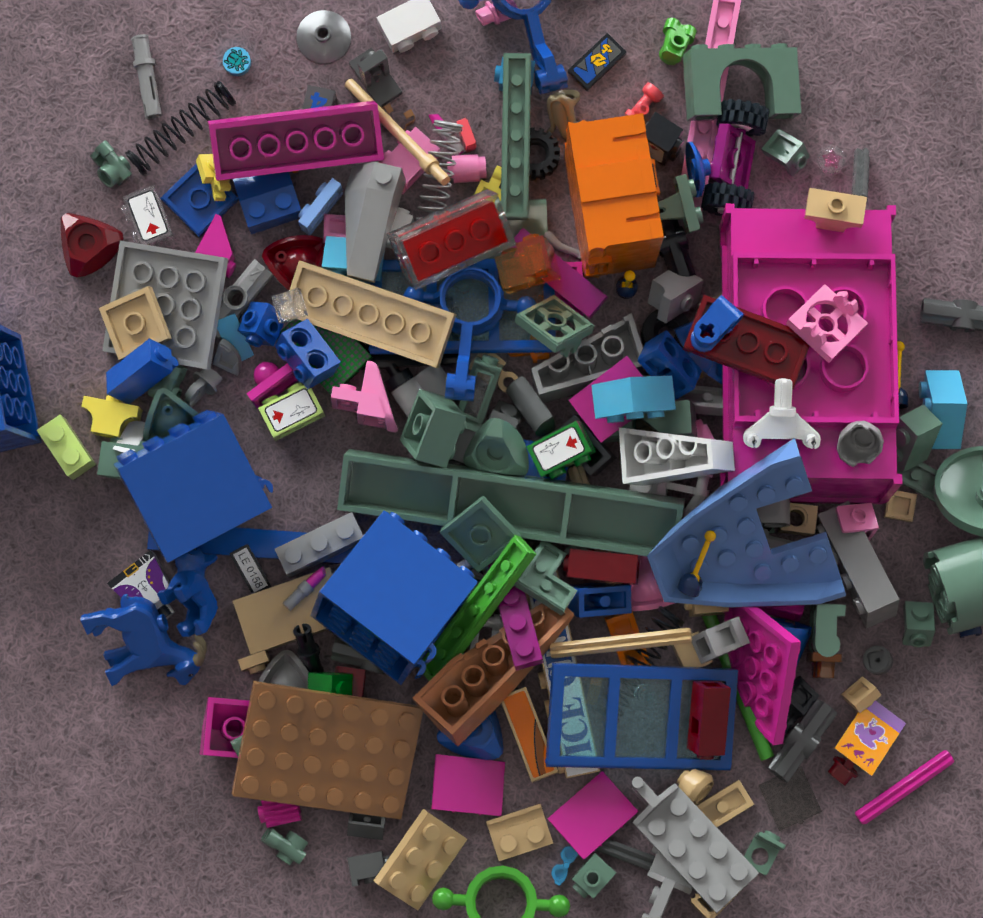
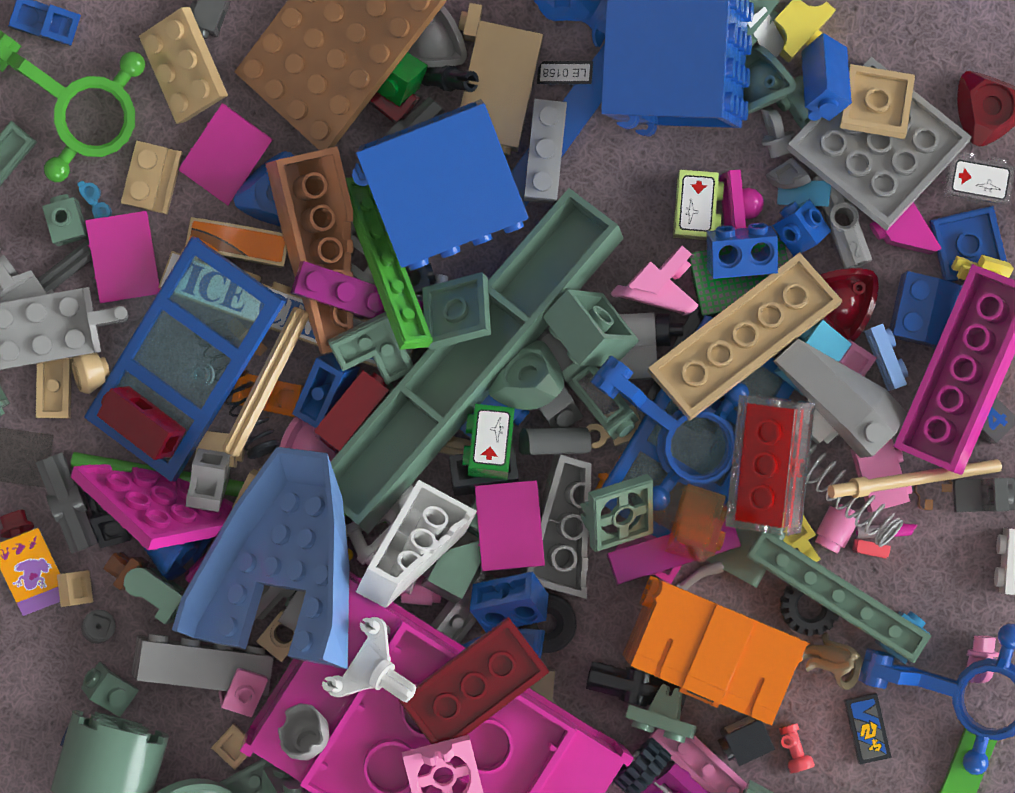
camera: 120 degrees right, 5 degrees up
(289, 305) = (802, 263): clear tile -> none
(305, 588) = (510, 110): light grey piece -> none
(366, 826) = (247, 34): dark grey piece -> none
(627, 282) = (619, 614): dark blue hinge -> none
(633, 398) = (494, 542): medium azure brick -> none
(674, 294) = (579, 653): light grey brick -> none
(691, 583) = (277, 484): hinge -> none
(696, 167) = (690, 756): blue dish -> none
(717, 321) = (511, 667): blue piece -> none

